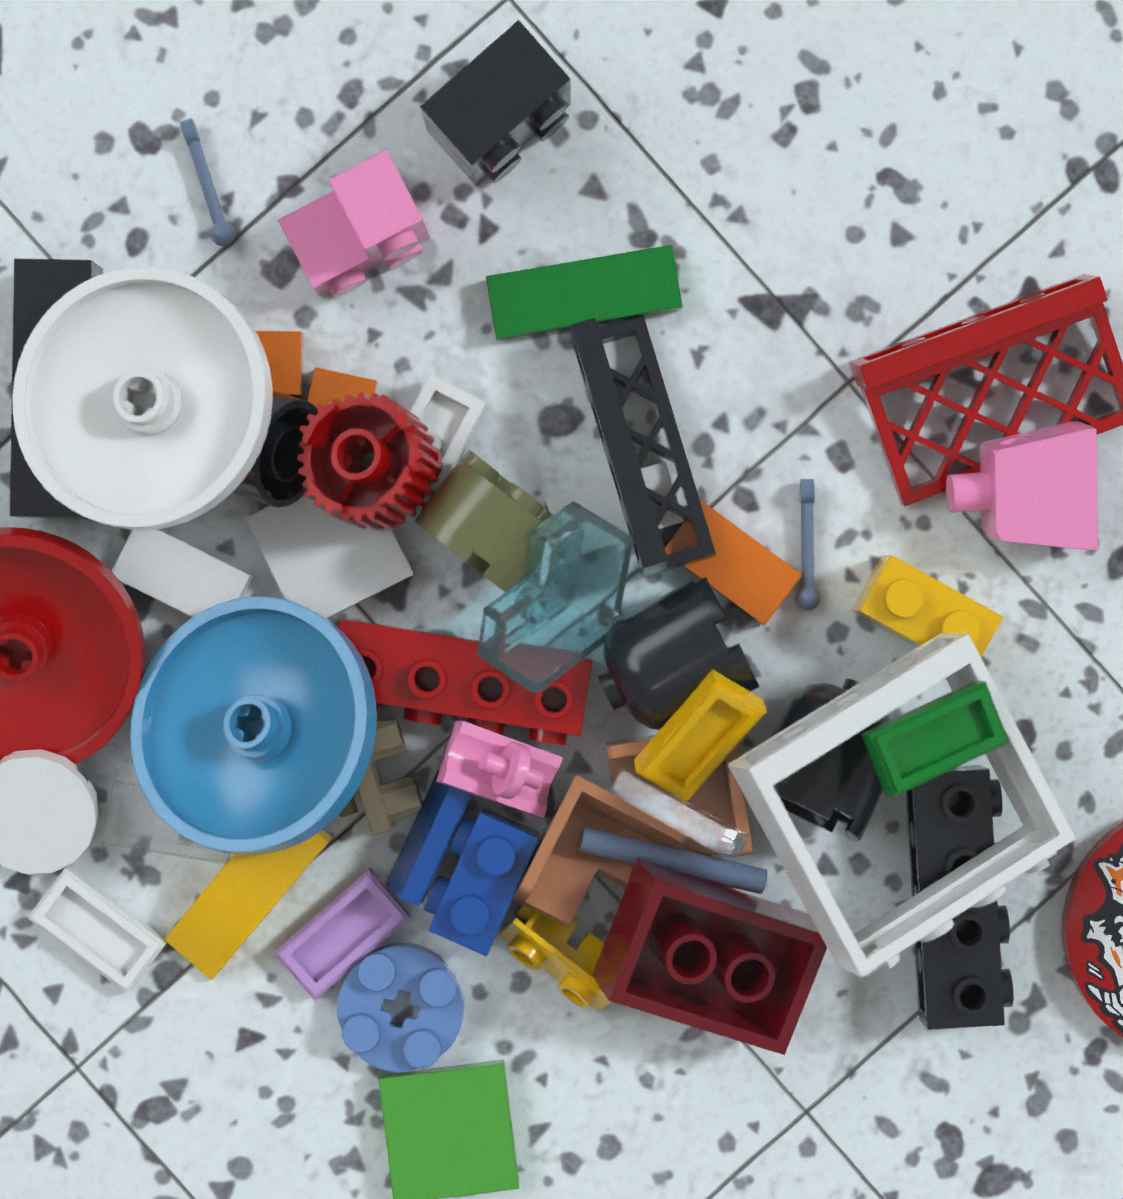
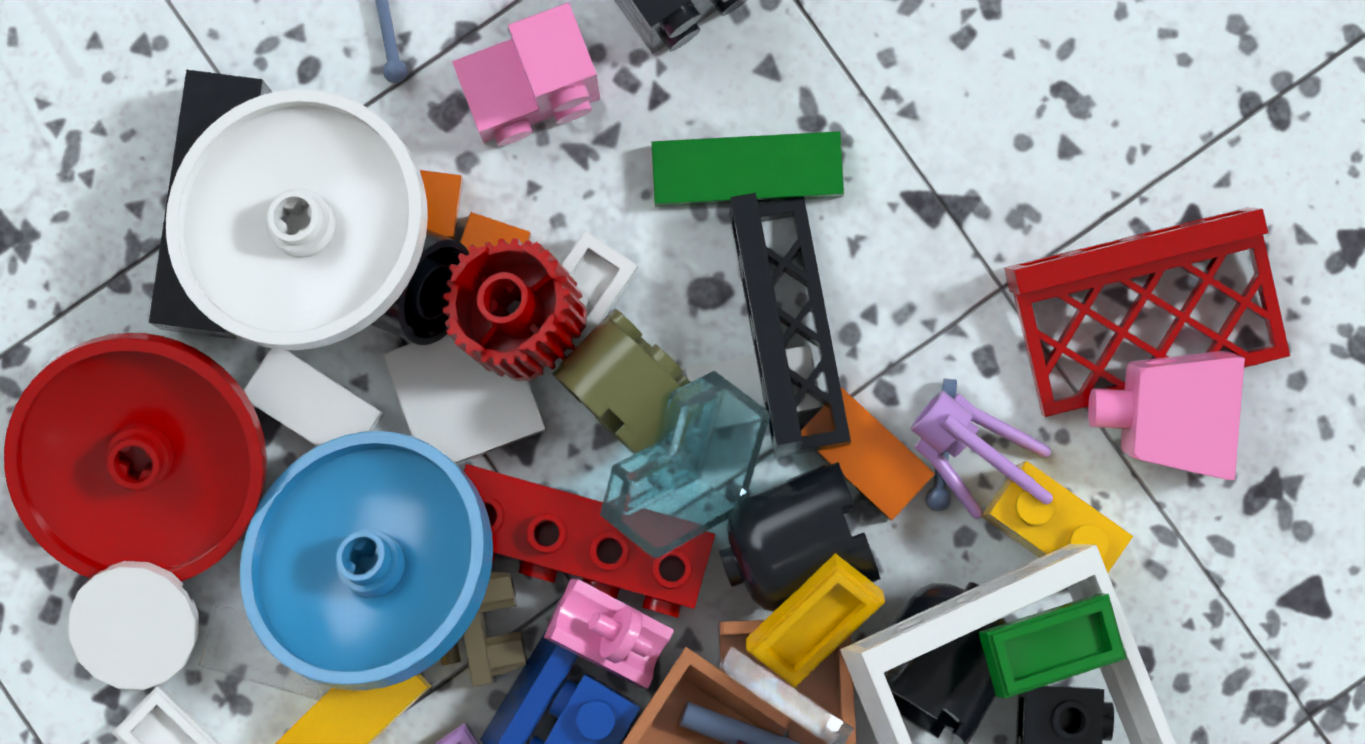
camera: 10 degrees right, 5 degrees down
(809, 529) = (948, 427): none -> lavender plant

